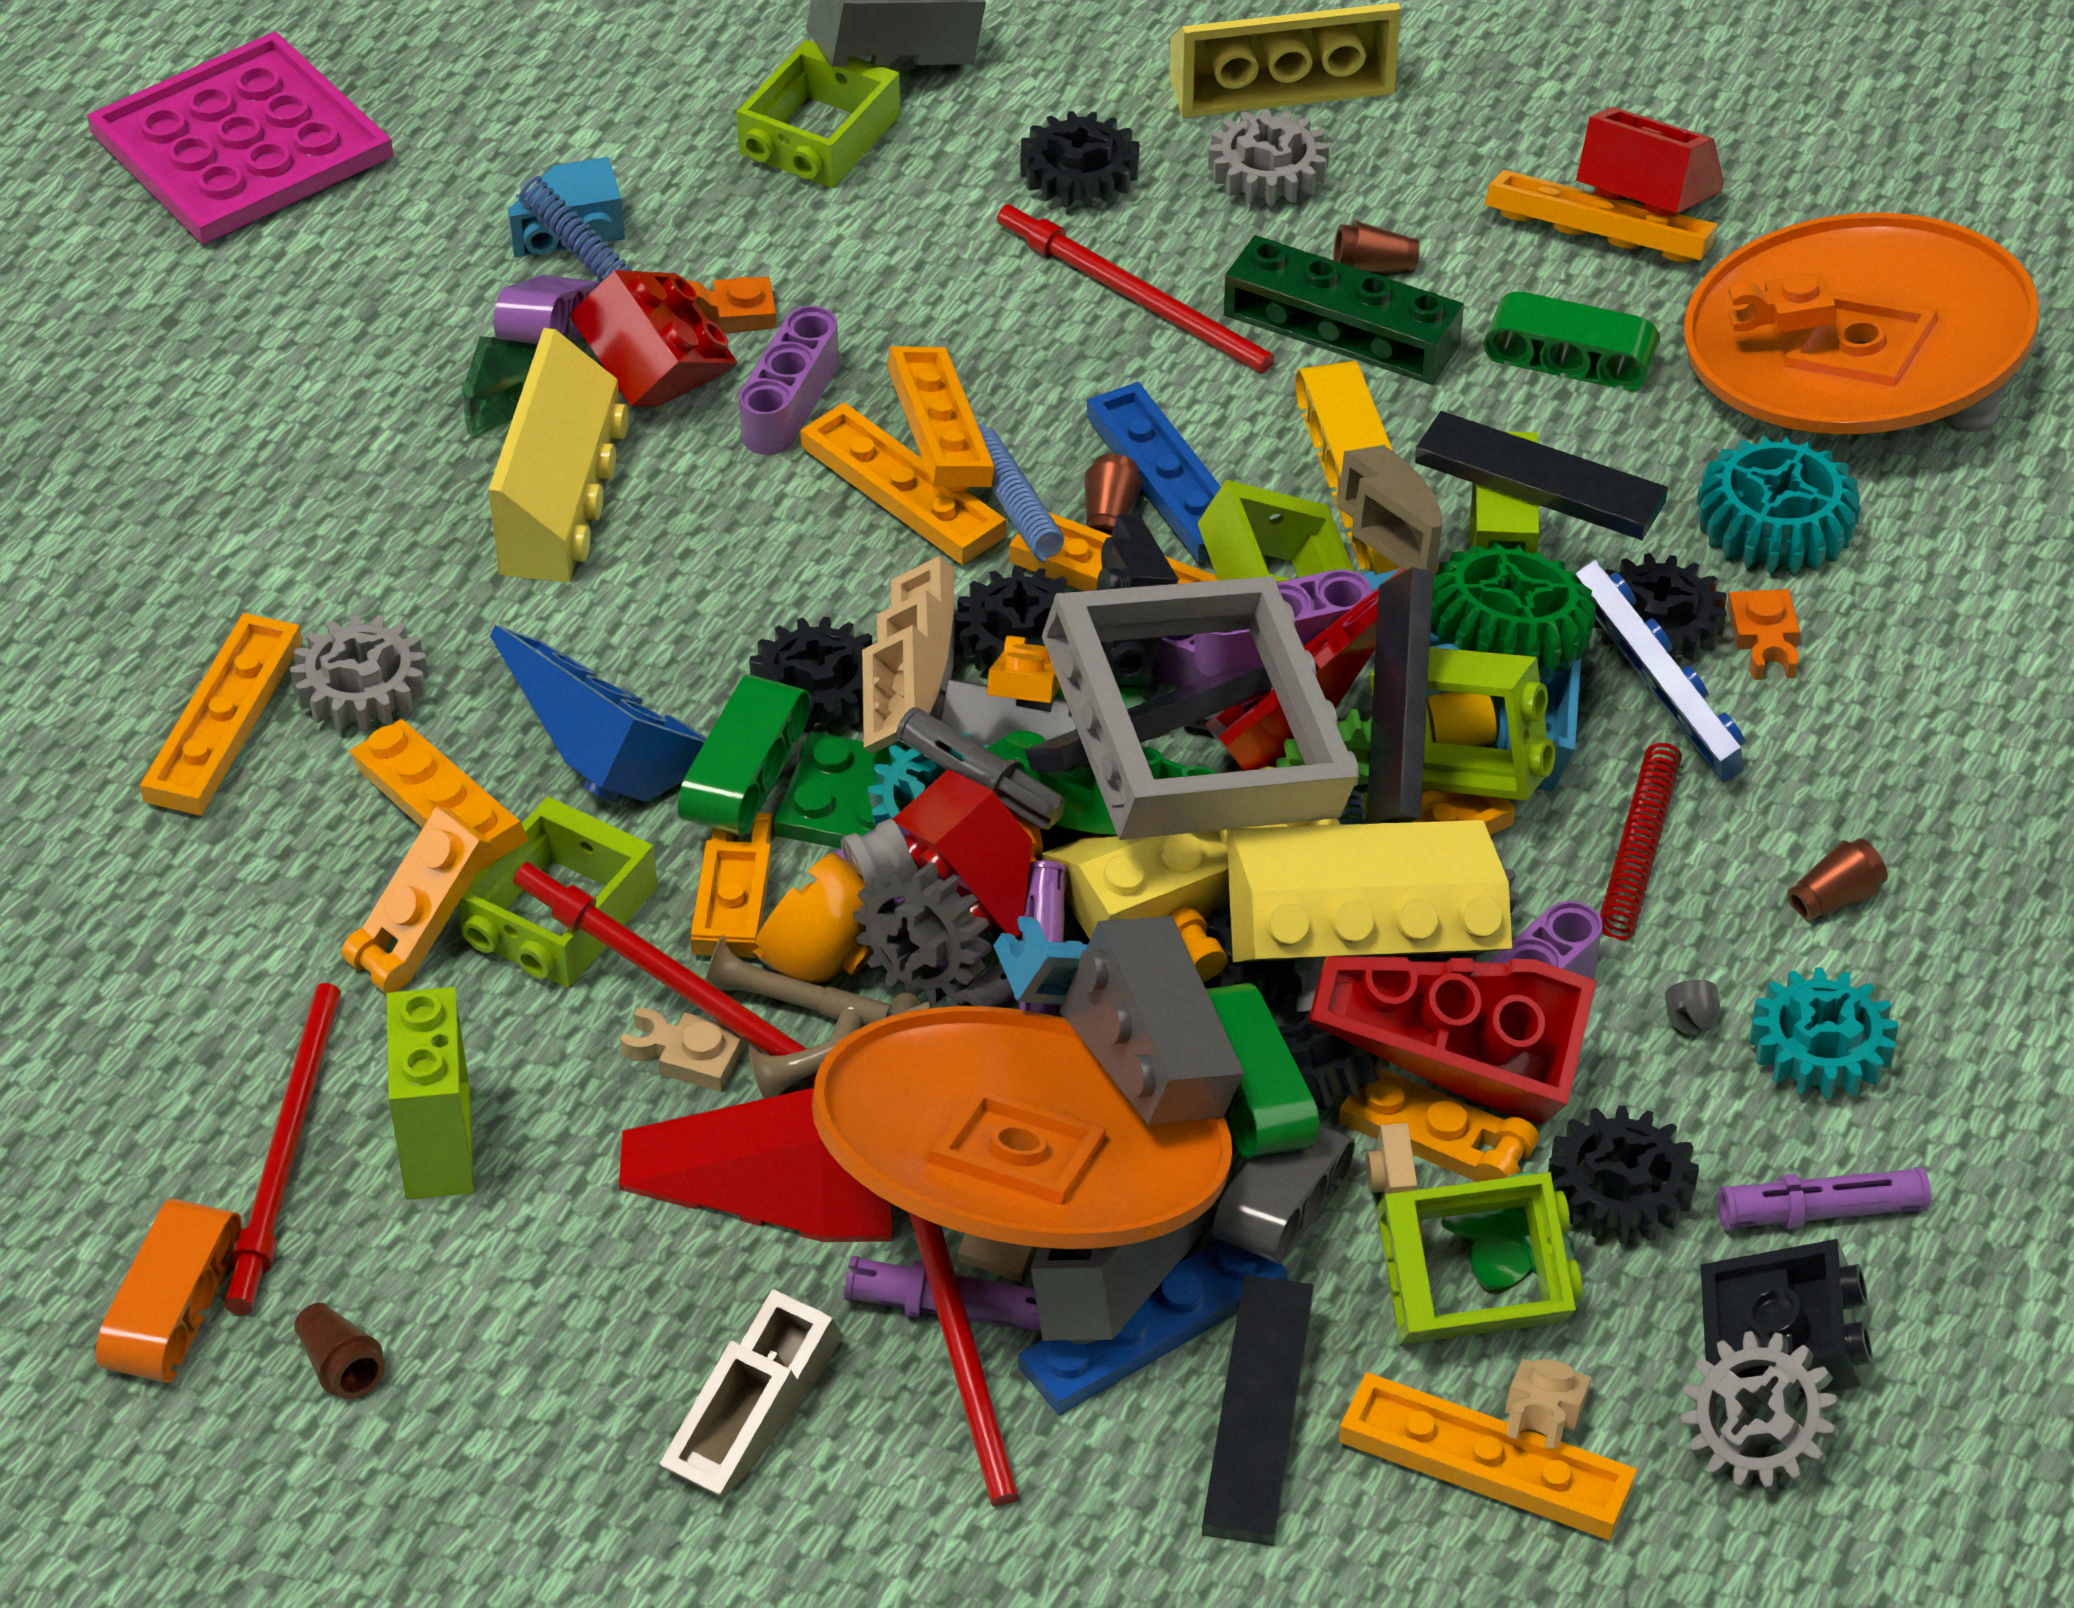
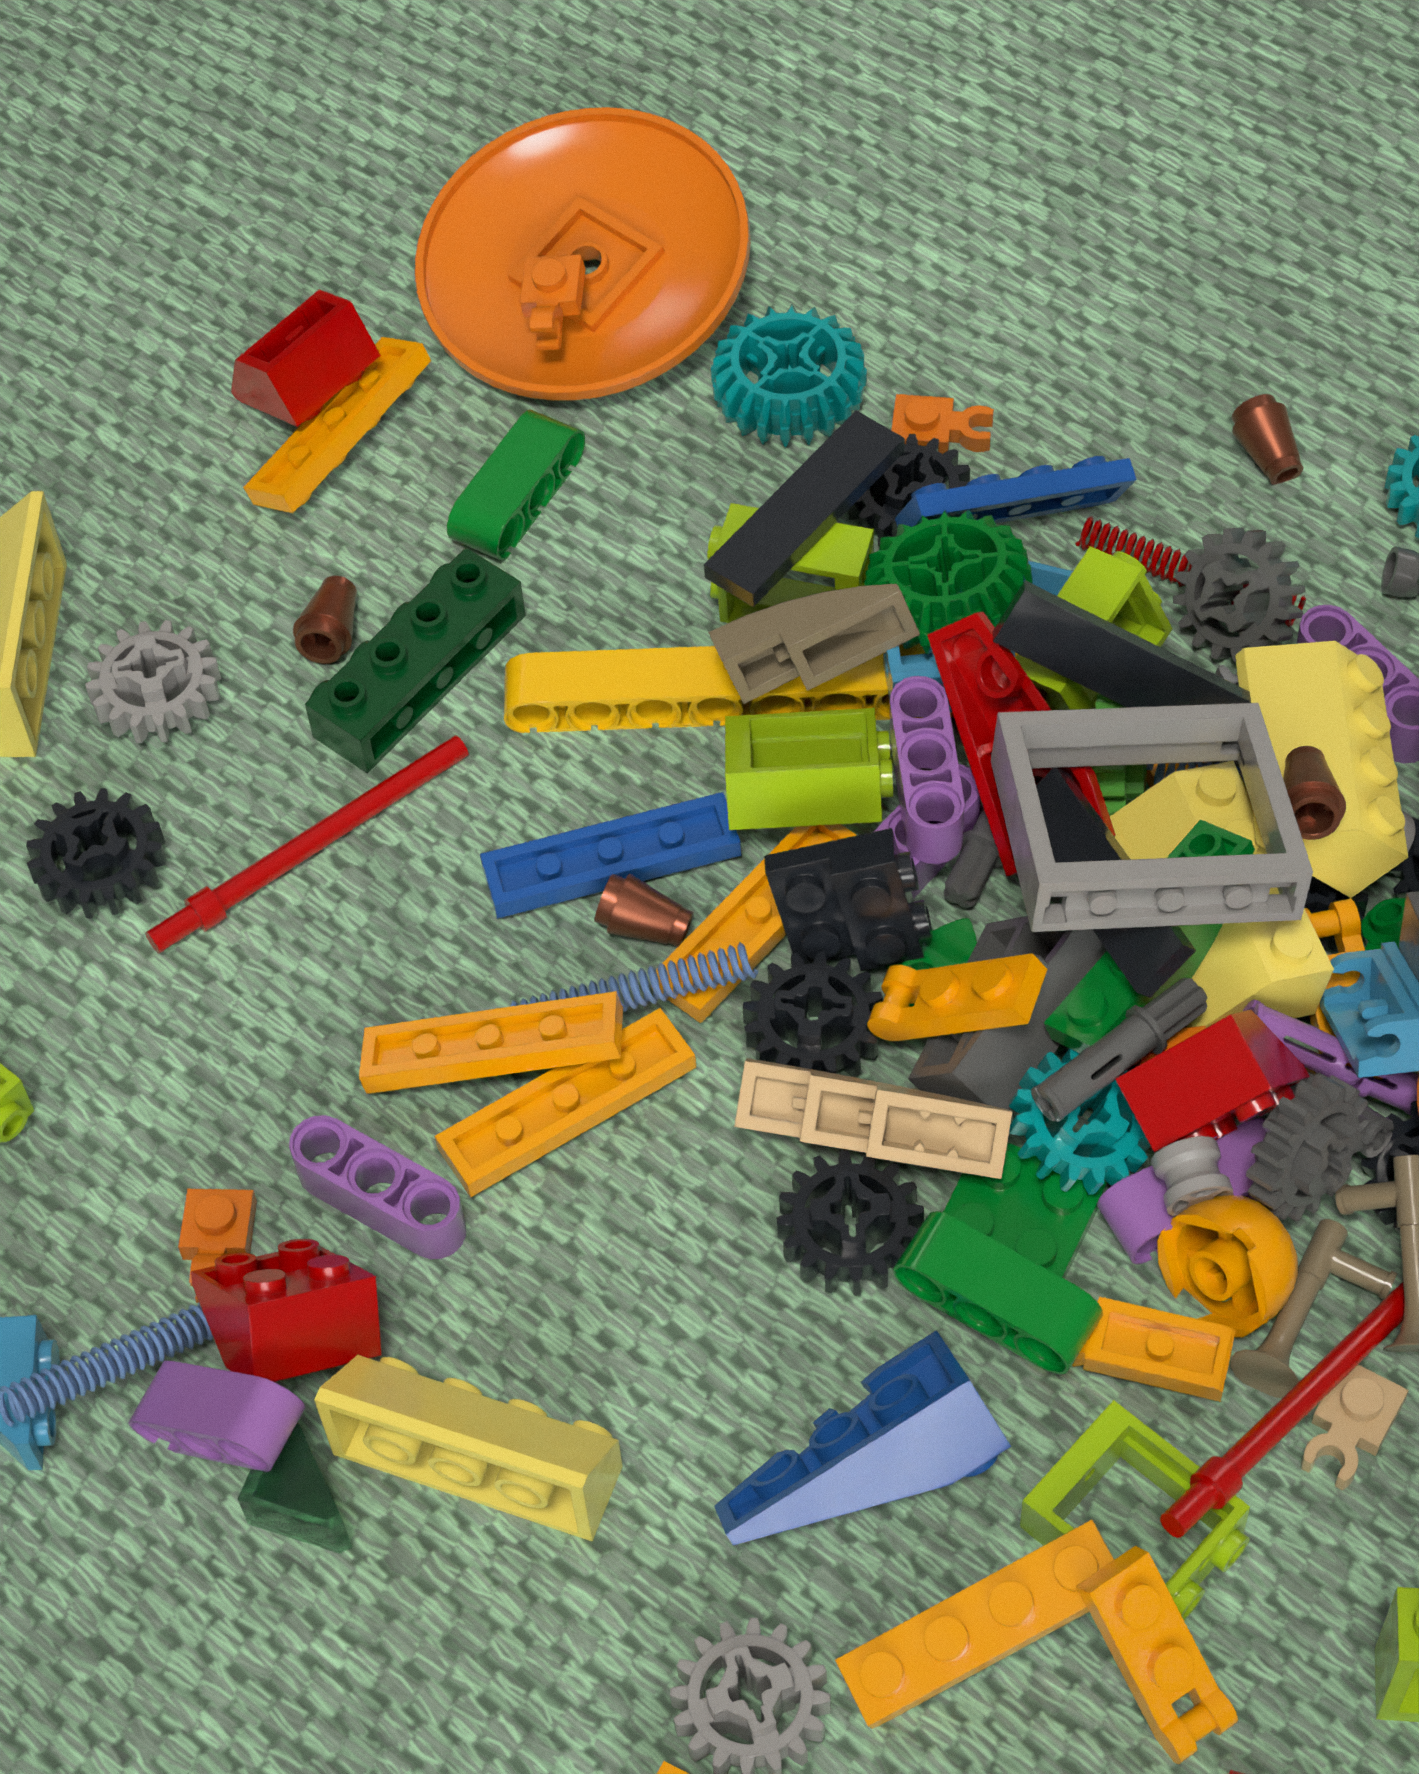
camera: 75 degrees left, 10 degrees up
(1272, 836) = (1313, 793): none -> copper cone
(1592, 850) = (1219, 577): none -> dark grey gear

